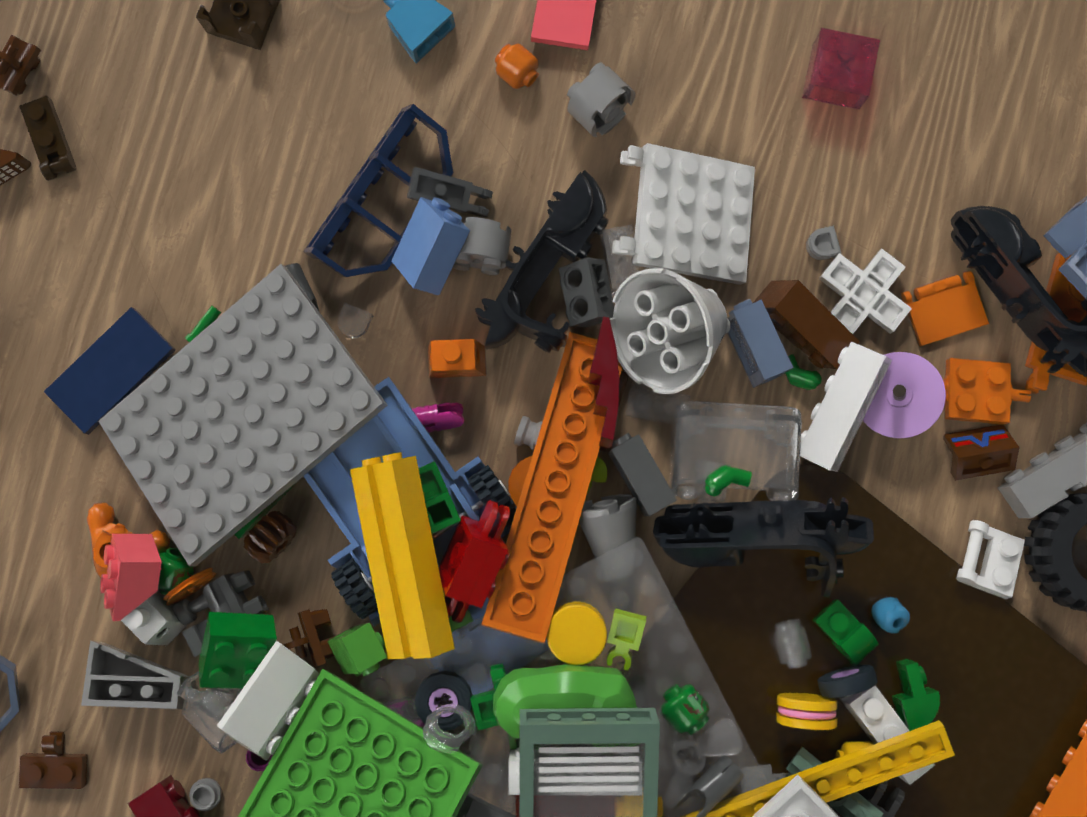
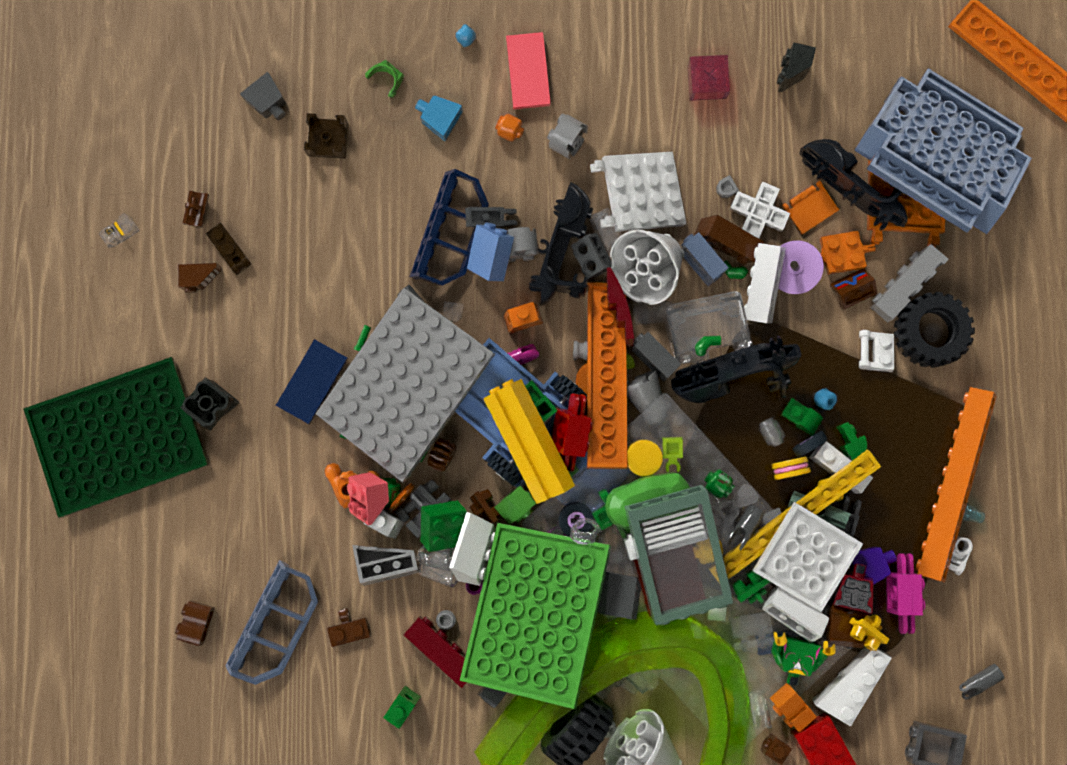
camera: 20 degrees left, 0 degrees up
(981, 82) = (795, 65): none -> pearl dark grey slope

